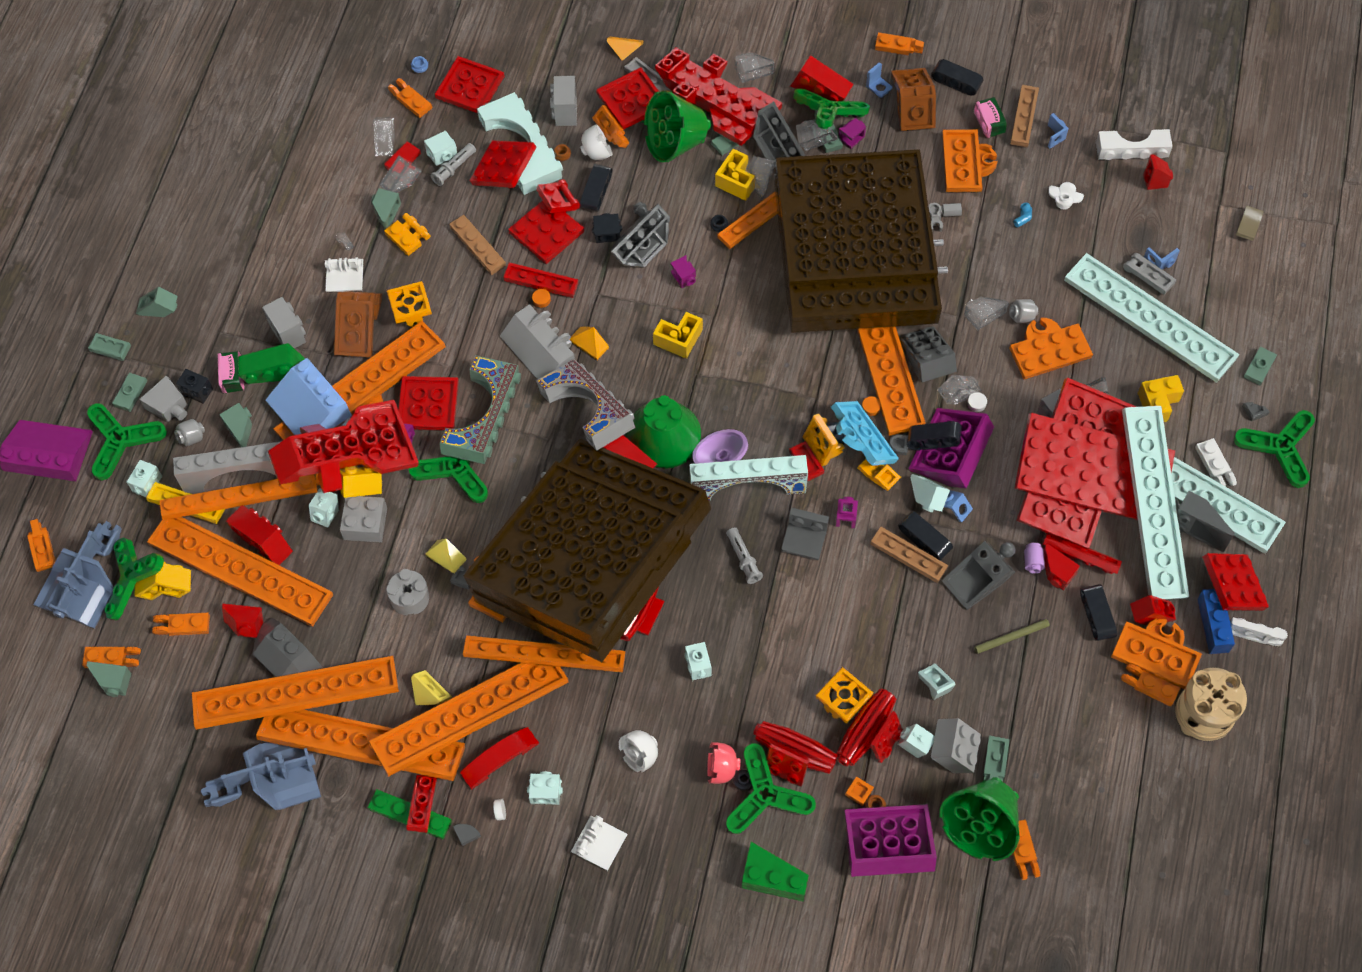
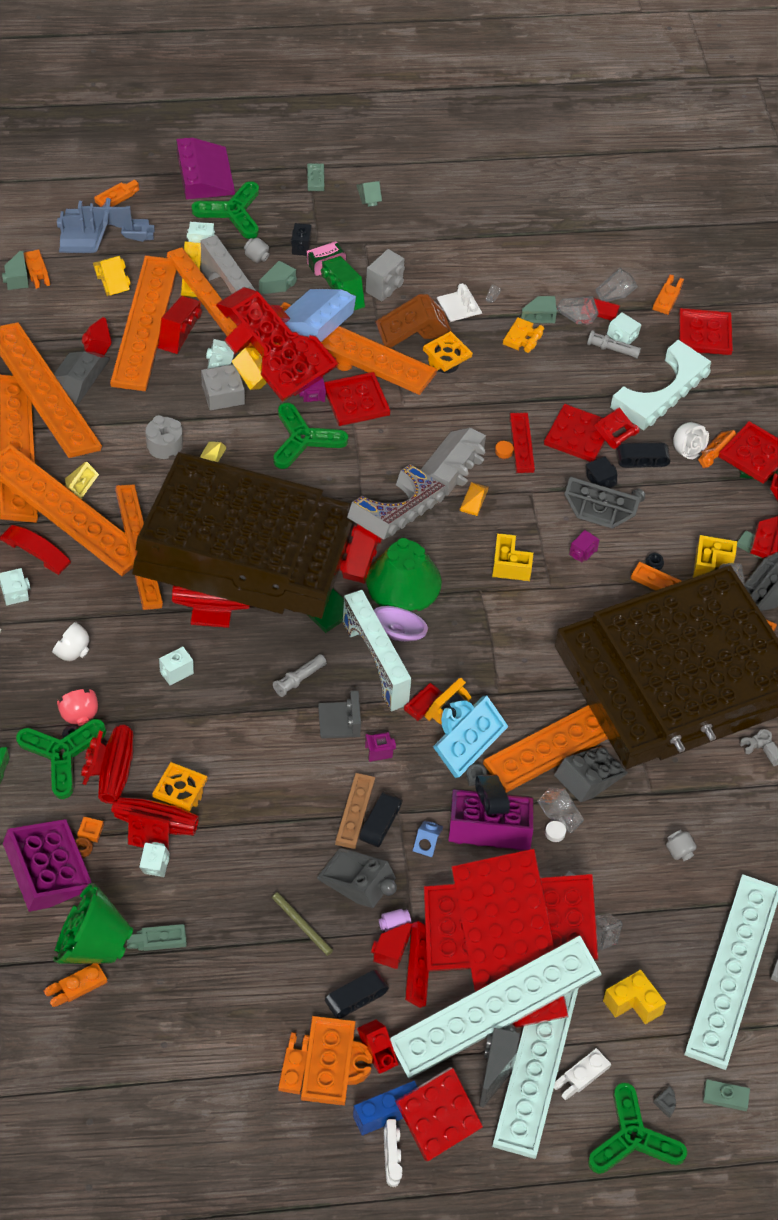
camera: 65 degrees right, 10 degrees down
(129, 392) = (280, 204): sand green plate -> none
(131, 572) = (109, 252): green piece -> none
(165, 401) = (279, 226): light grey torso -> none
(182, 624) = (82, 303): orange hinge -> none
(419, 64) = (708, 290): medium blue plate -> none
(476, 441) = (328, 437): sand green arch -> none
(477, 244) = (537, 387): medium nougat plate -> none
(503, 164) = (629, 376): red plate -> none
(562, 148) = (669, 419): dark orange plate -> none
(564, 101) = (722, 401): light grey brick -> none
(673, 126) = (739, 492): green cone -> none
(871, 406) = (508, 738): orange tile -> none
(879, 474) = (434, 768): light orange slope -> none
(929, 493) = (428, 808): light aqua slope -> none
(936, 680) = (223, 864): light aqua slope -> none
(955, 745) = (158, 891): light grey brick -> none
(984, 311) = (663, 810): clear slope -> none
(1049, 348) = (649, 882): orange plate -> none
(1211, 704) = (281, 1111): tan wheel -> none

